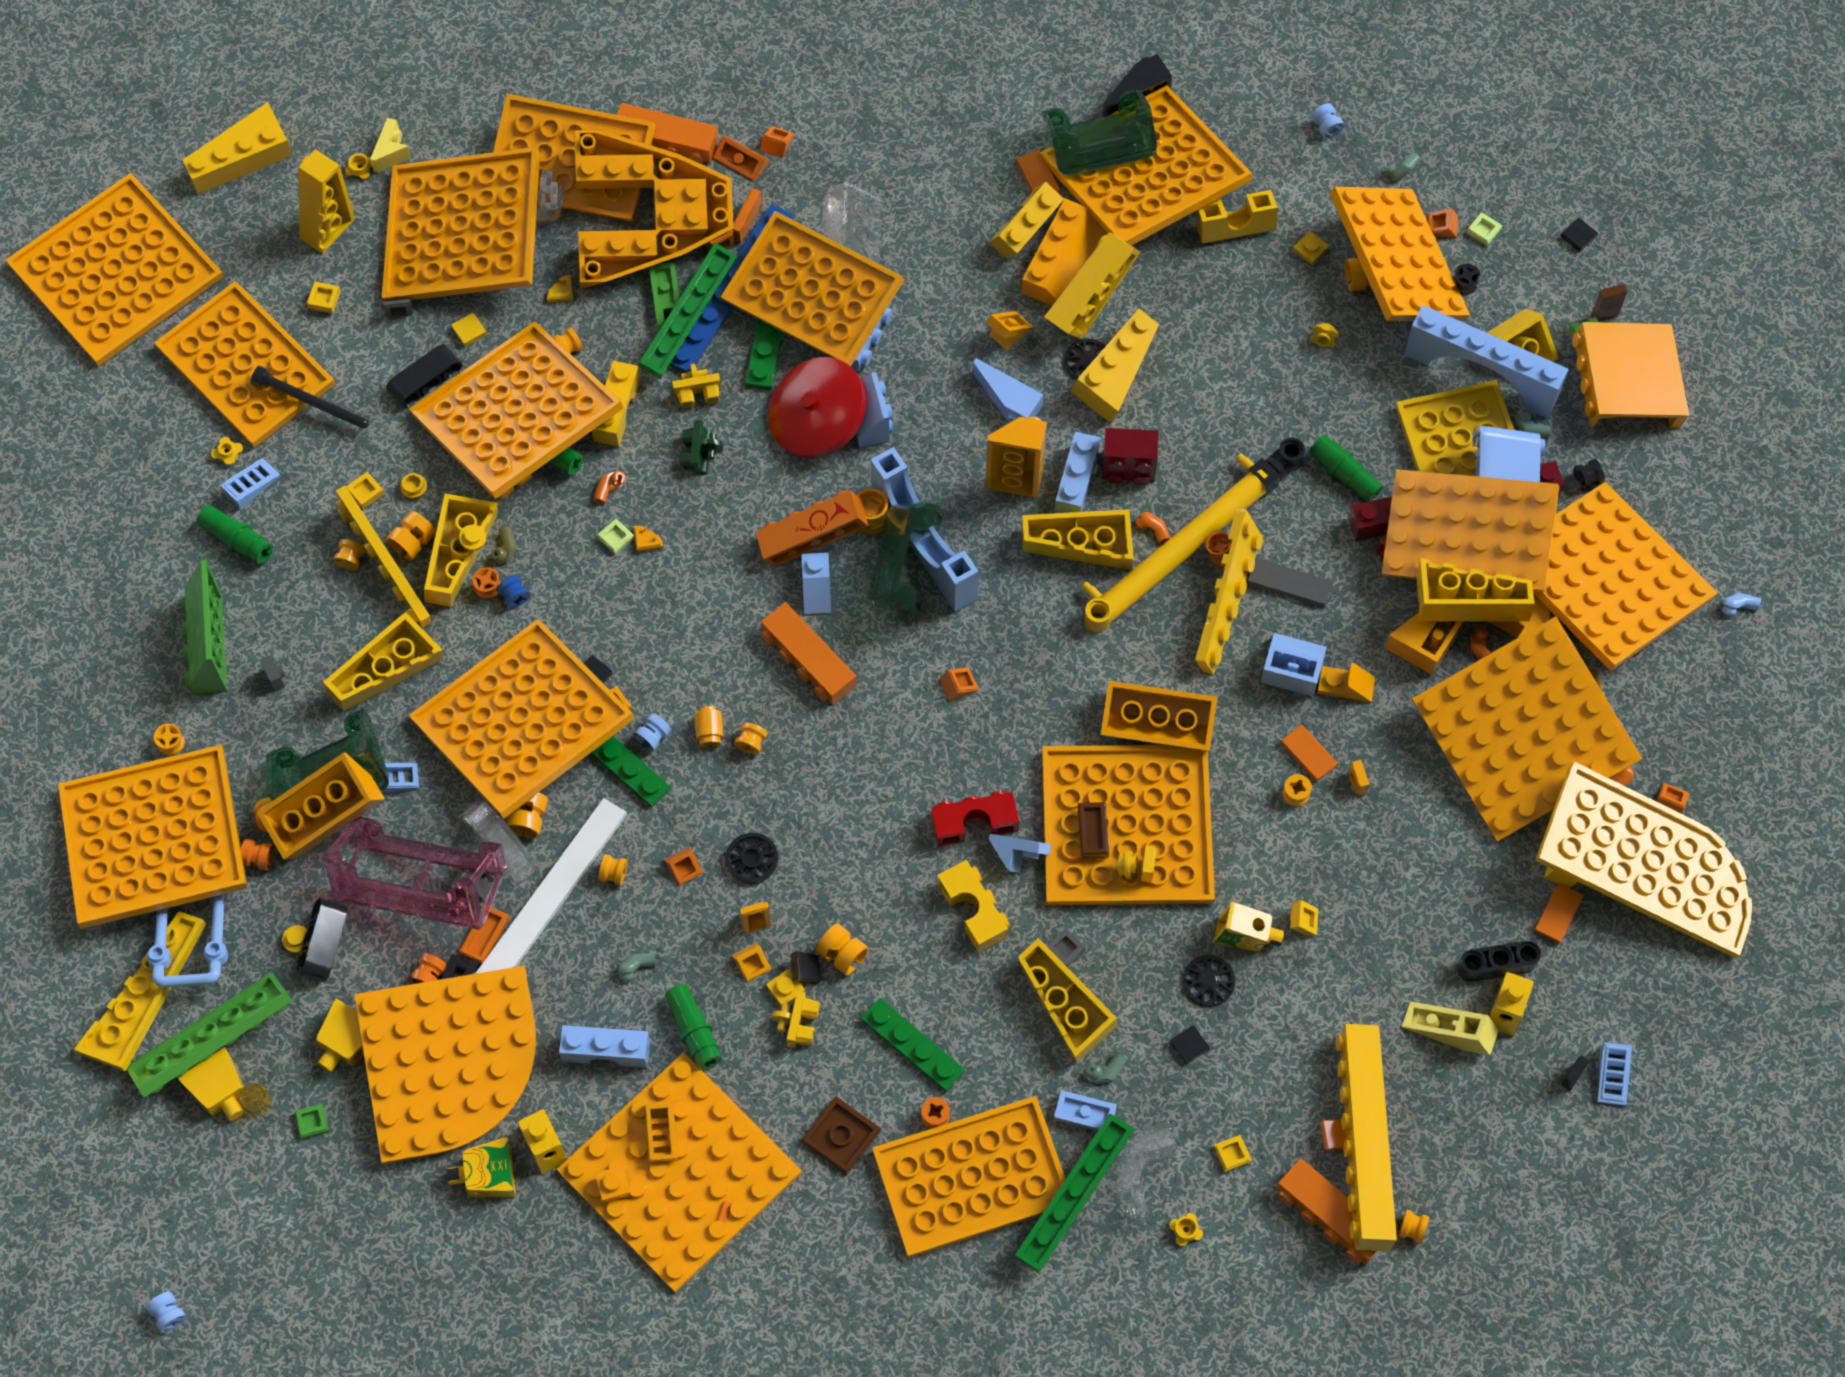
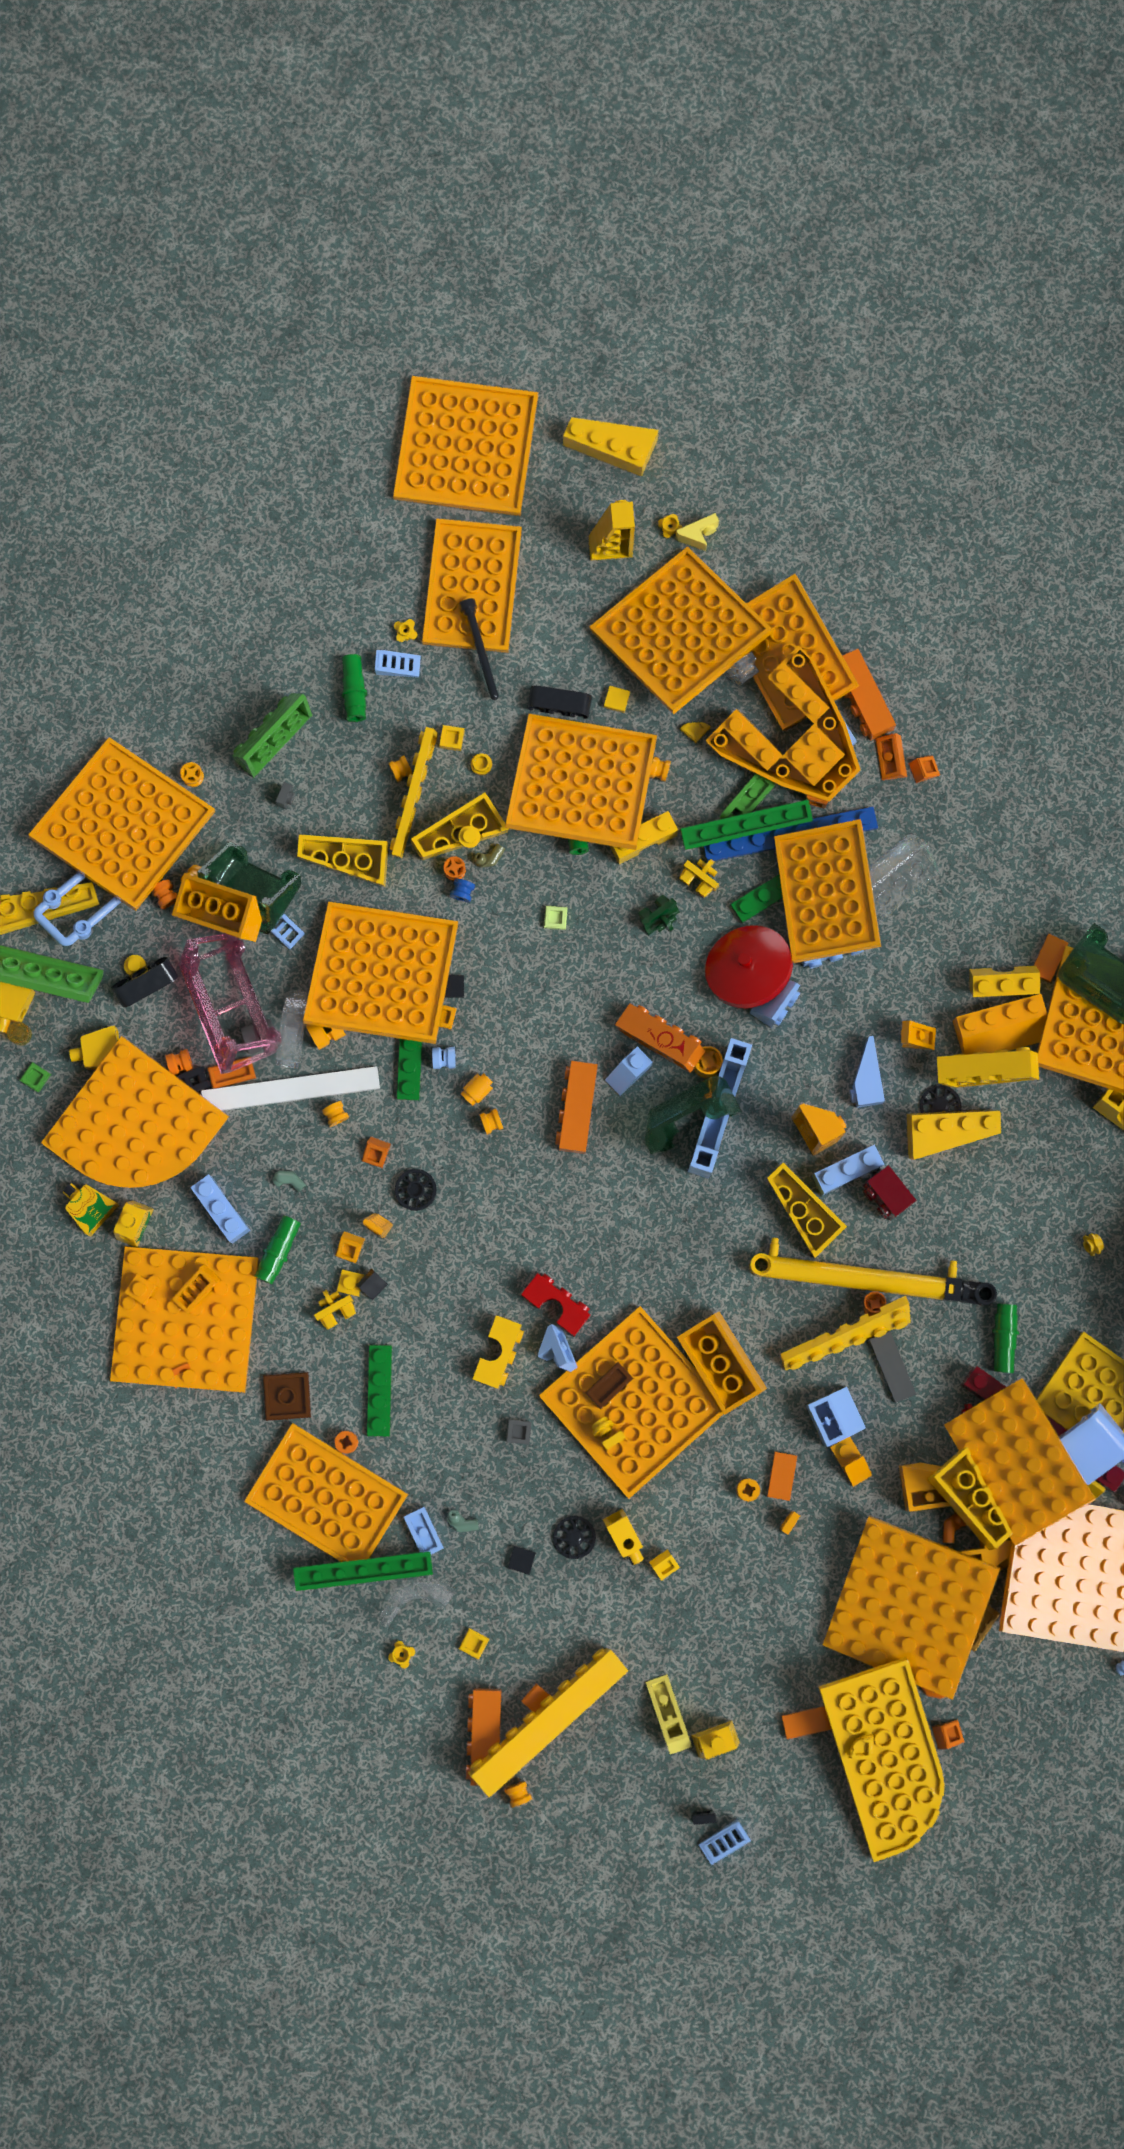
camera: 50 degrees right, 15 degrees up
(323, 297) = (559, 590): yellow plate -> none
(398, 308) = (592, 641): dark grey slope -> none
(402, 538) = (436, 794): light orange wheel -> none
(607, 484) = (586, 880): orange arm -> none
(646, 539) = (570, 938): light orange tile -> none
(746, 214) = (850, 799): orange tile -> none
(840, 948) = (401, 1297): light orange wheel -> none
(958, 683) = (641, 1216): orange slope -> none
(1069, 1003) = (483, 1462): yellow wedge -> none
(1156, 524) = (859, 1247): orange arm -> none
(1508, 953) = (749, 1716): black beam -> none
(1624, 868) = (862, 1748): none -> yellow tile

